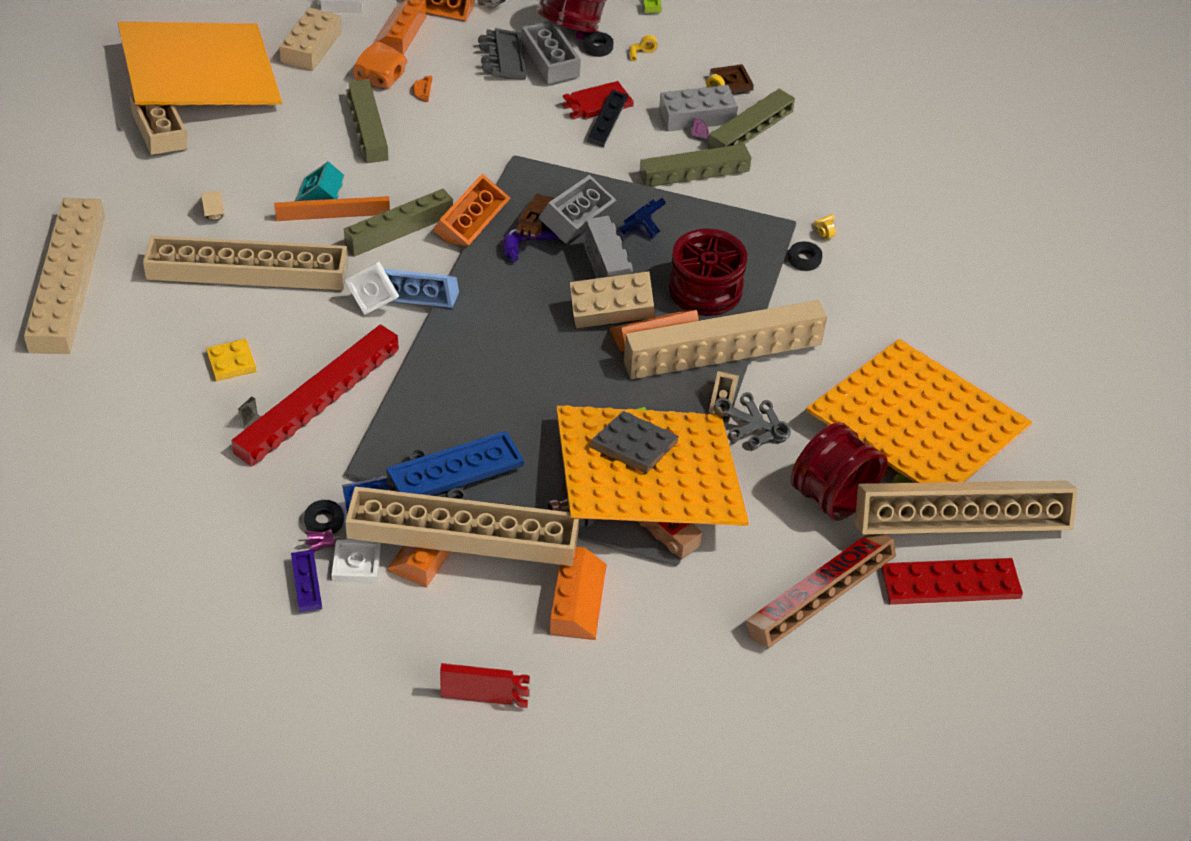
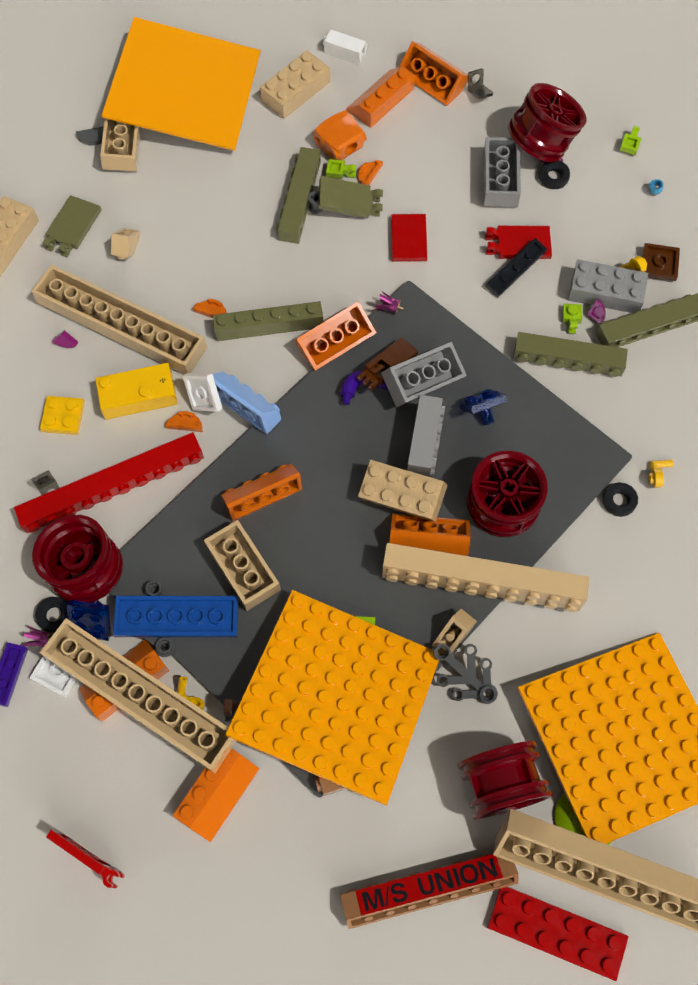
camera: 30 degrees right, 20 degrees up
(122, 133) = (91, 136): none -> dark grey tile
(144, 207) = (71, 225): none -> olive tile
(196, 298) = (65, 340): none -> magenta tile
(299, 314) = (136, 391): none -> yellow brick
(321, 184) = (223, 256): teal slope -> none
(328, 450) = (86, 569): none -> dark red wheel
(330, 232) = (209, 308): none -> orange tile
(331, 208) = (221, 284): orange tile -> none
(360, 326) = (185, 421): none -> orange tile
(387, 119) = (313, 202): none -> dark grey bush
(394, 92) = (338, 169): none -> lime plate
(419, 108) = (349, 197): none -> olive tile
(478, 347) = (262, 491): none -> orange slope
(493, 125) = (409, 237): none -> red tile
(495, 405) = (242, 565): none -> tan brick
(505, 53) = (461, 158): dark grey hinge -> none
(512, 176) = (391, 304): none -> flat silver piece
(634, 441) = (333, 666): dark grey plate -> none
(646, 47) = (600, 191): yellow plate -> none
(679, 139) = (572, 315): none -> lime plate
(691, 26) = (653, 184): none -> dark azure hinge

